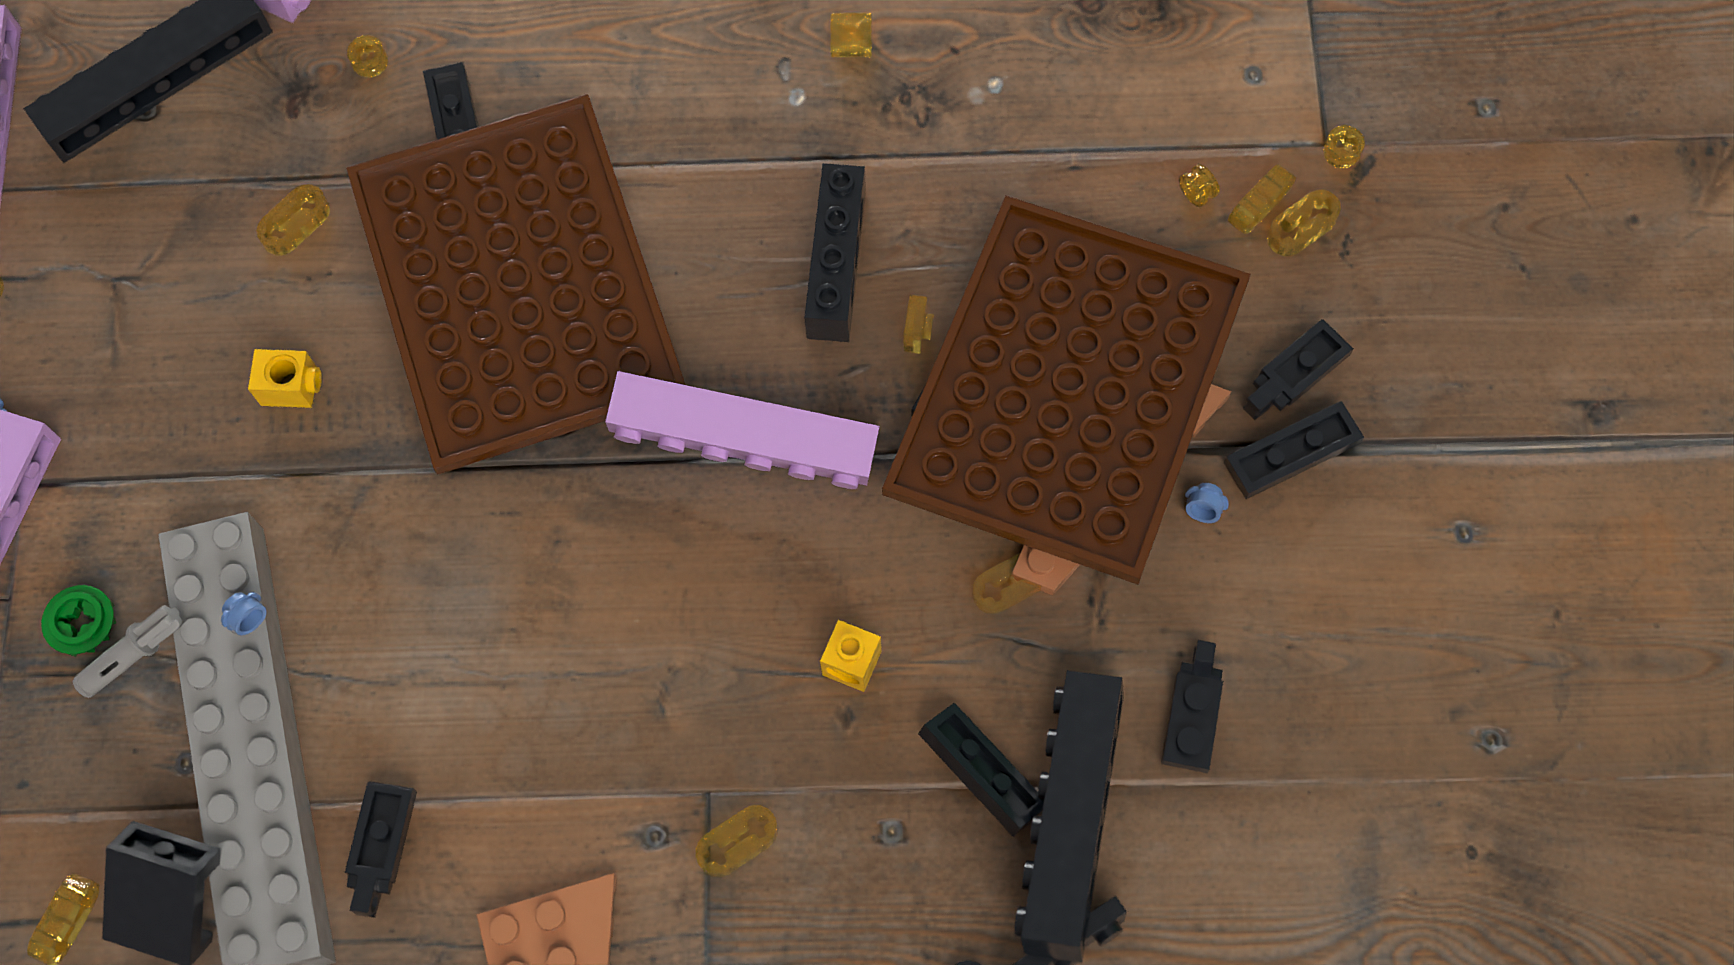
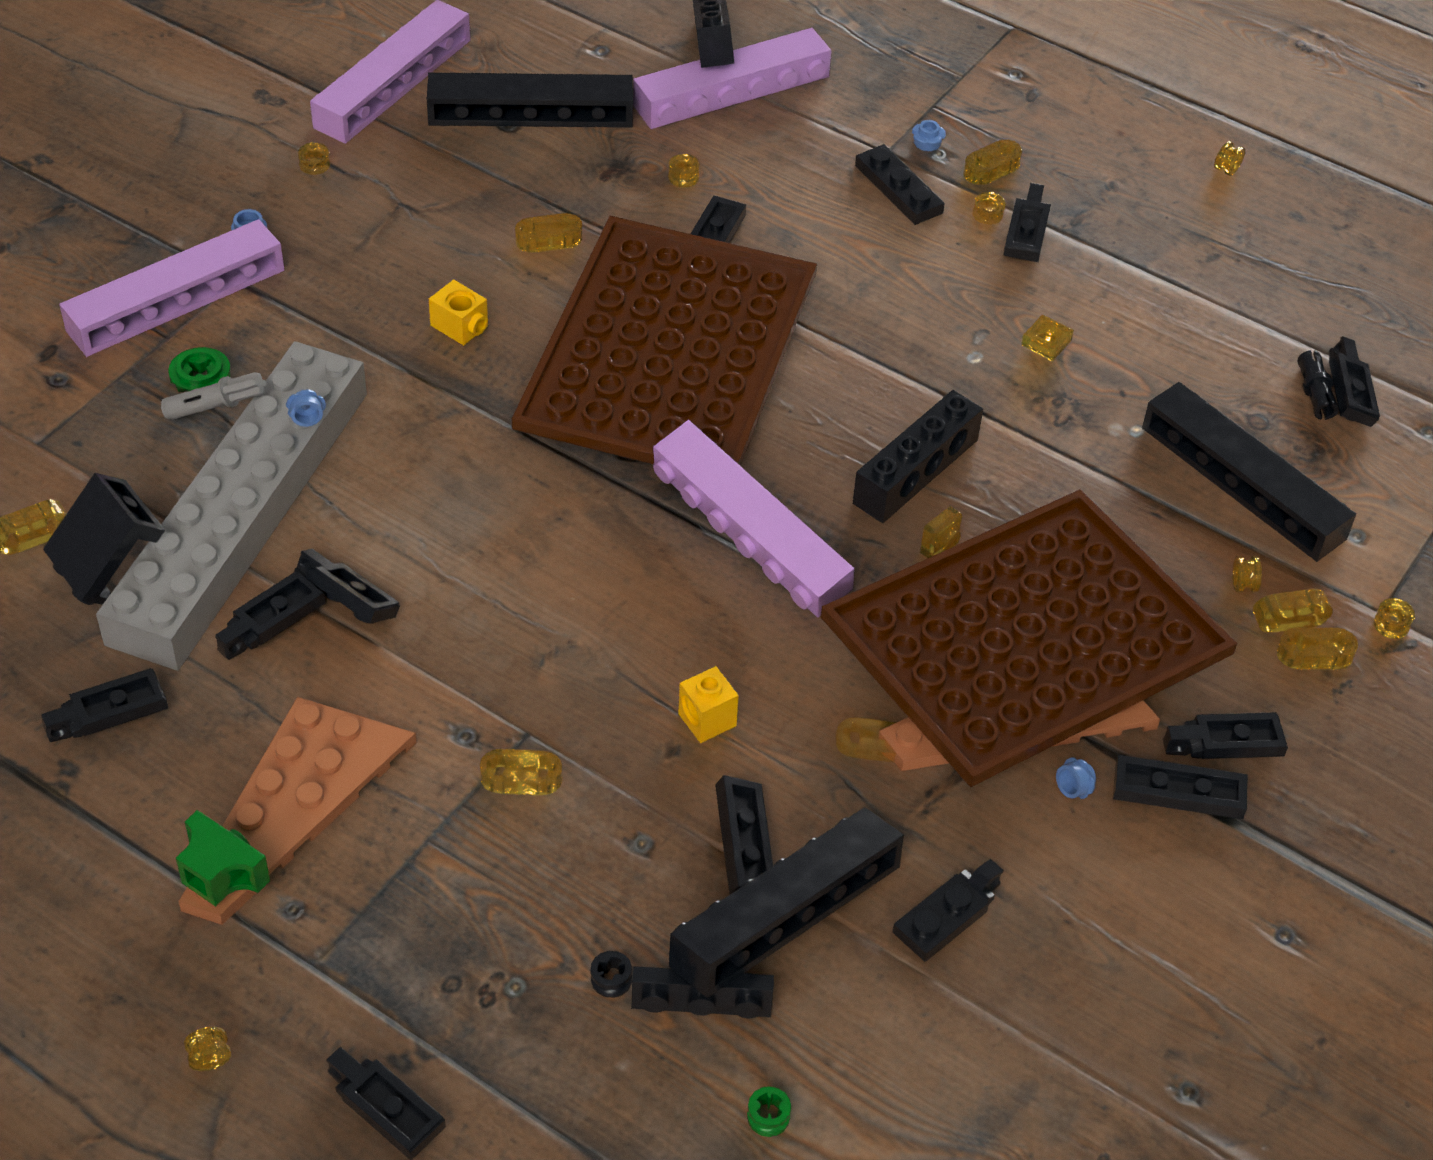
camera: 30 degrees right, 20 degrees down
(427, 765) = (347, 587): none -> black hinge
(1125, 70) = (1248, 471): none -> black brick

